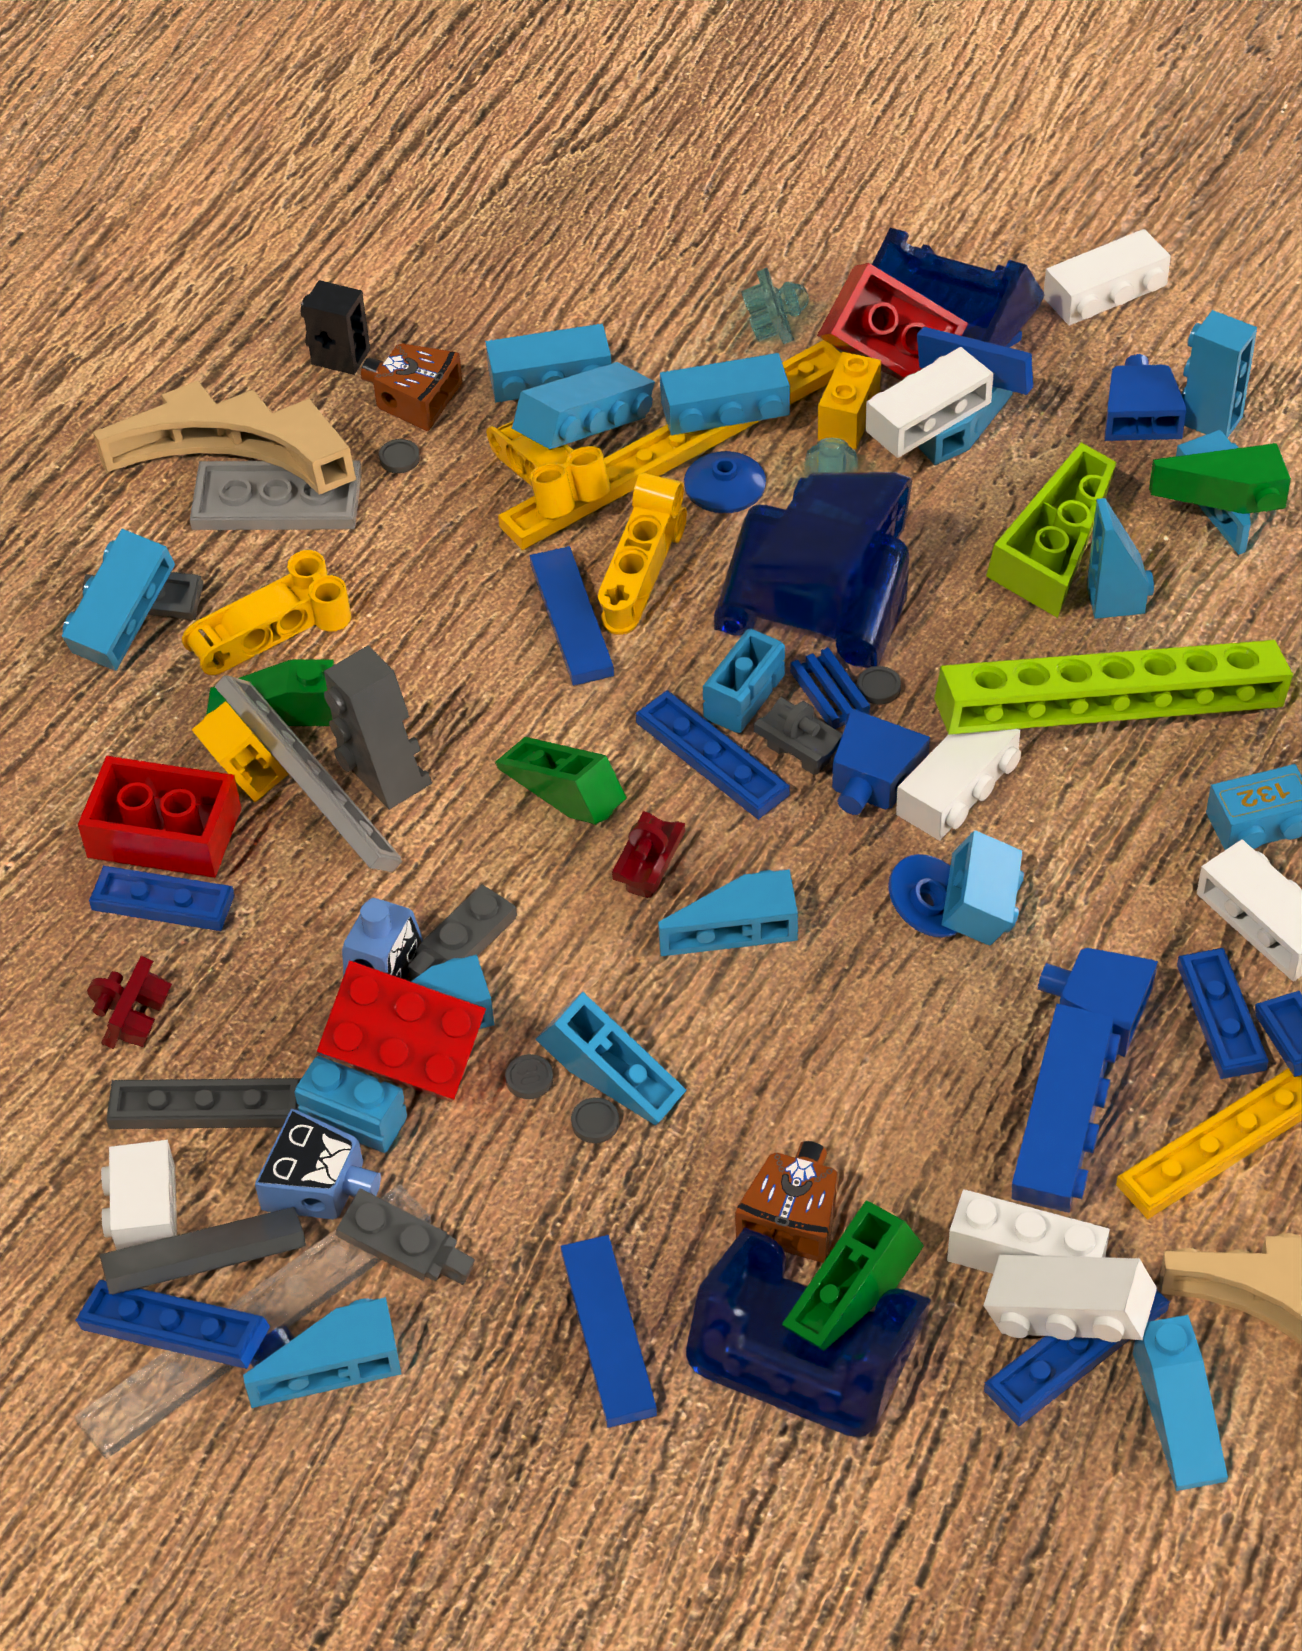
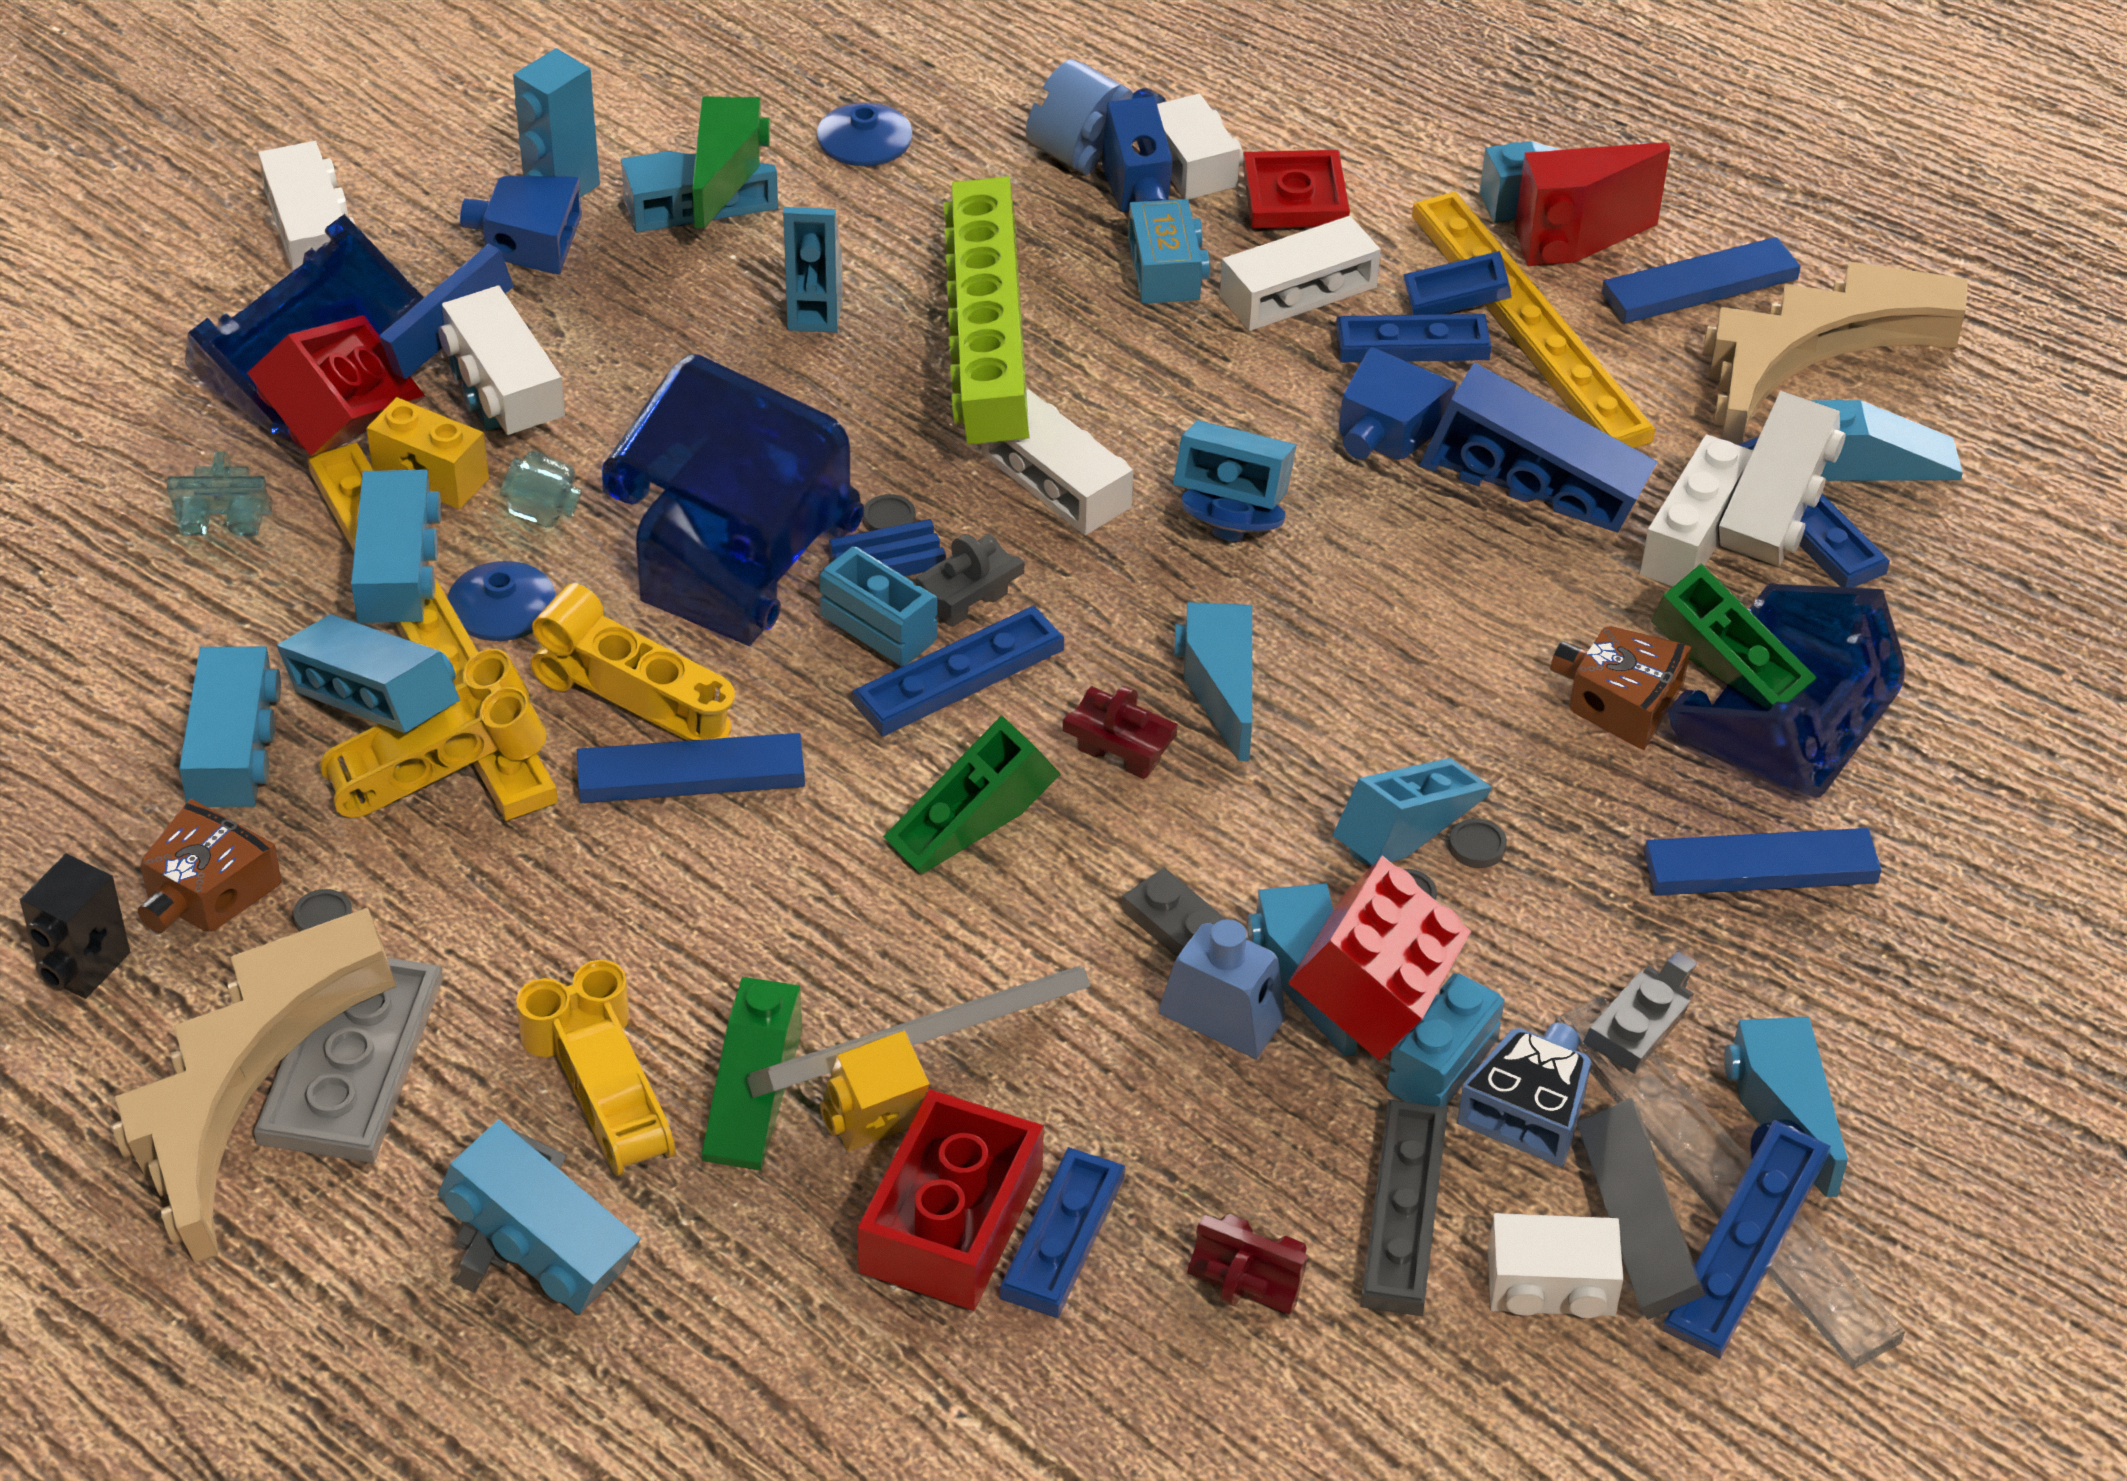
camera: 85 degrees left, 5 degrees down
(370, 729) = (877, 943): dark grey wedge -> none
(874, 761) = (1029, 521): blue torso -> none
(1050, 535) = (721, 312): lime wedge -> none

